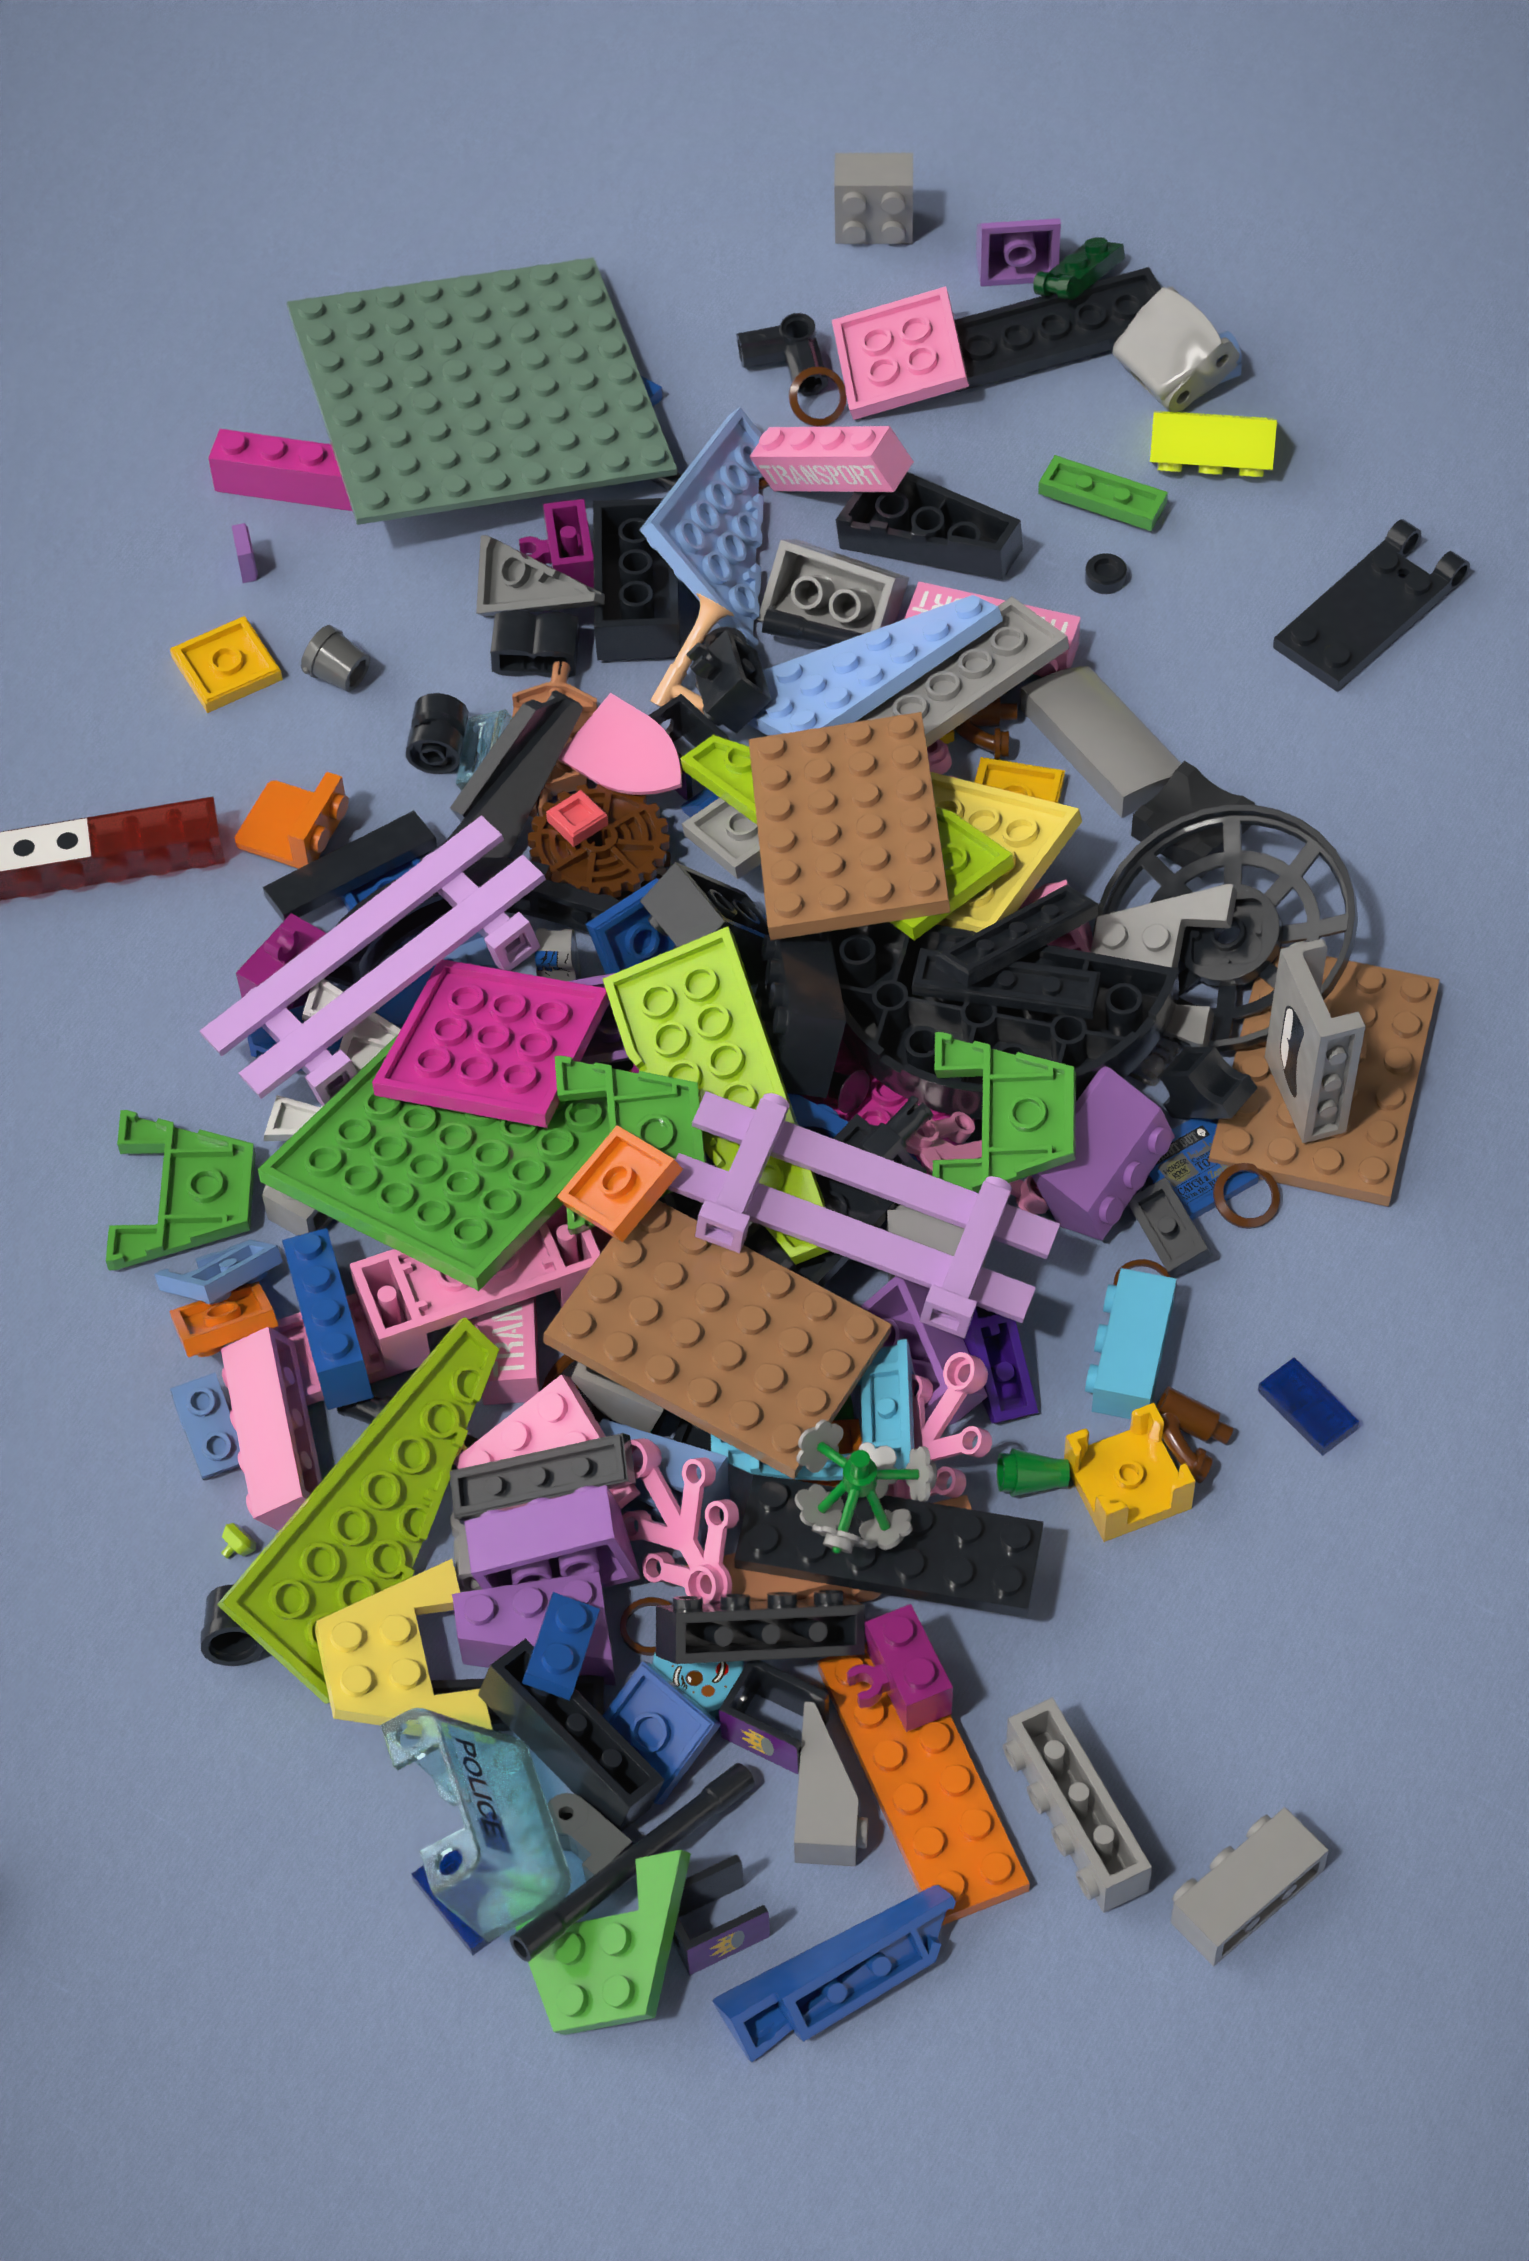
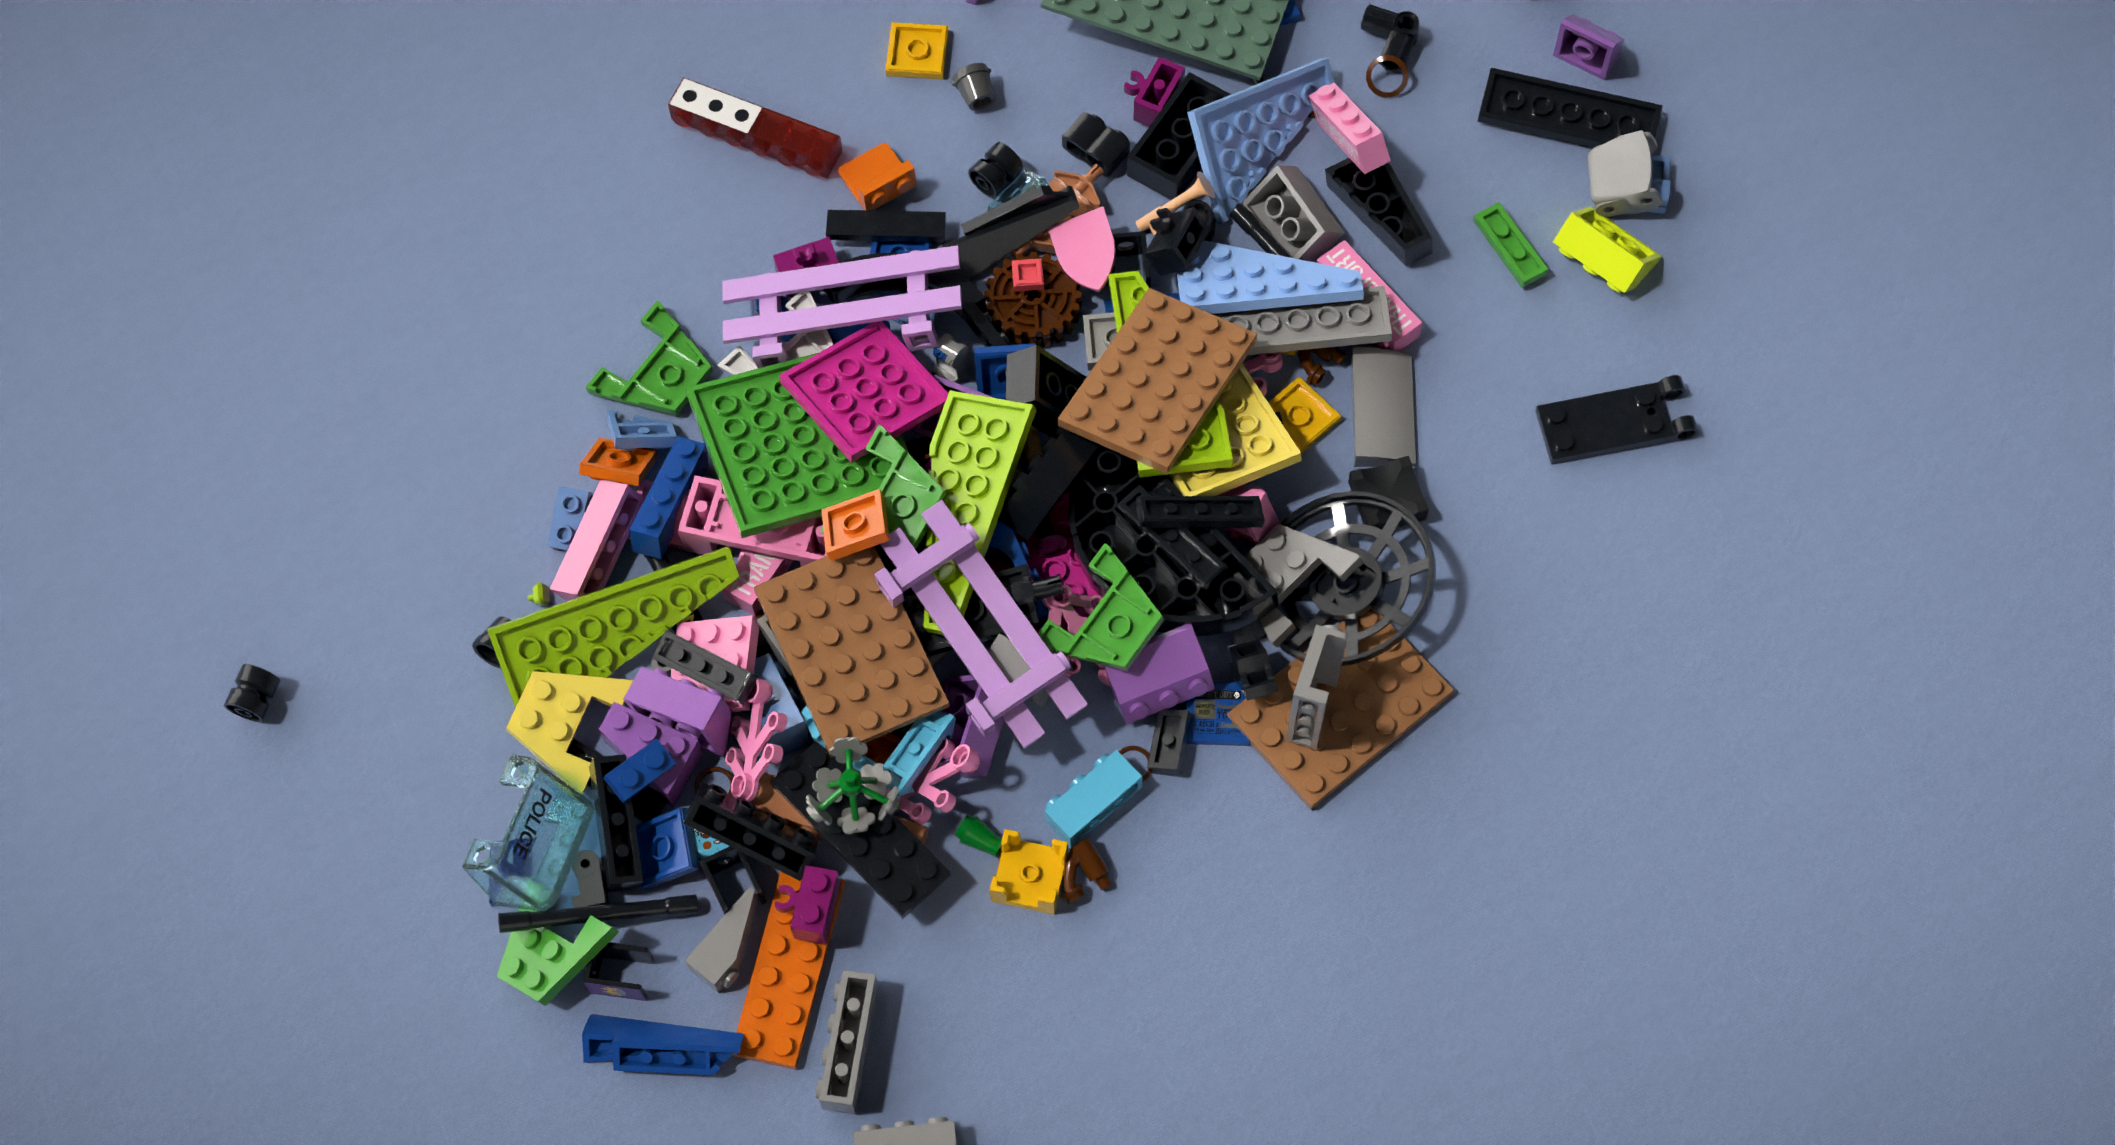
camera: 35 degrees right, 10 degrees up
(519, 582) = (1113, 102): wing -> none
(900, 353) = (1457, 76): bright pink plate -> none
(999, 1346) = (1009, 762): dark purple slope -> none
(1079, 269) = (1616, 82): dark green plate -> none
(1105, 573) = (1471, 300): black tile -> none
(1228, 1214) = (1217, 764): reddish brown piece -> none
(1308, 1406) = (1165, 899): clear blue tile -> none

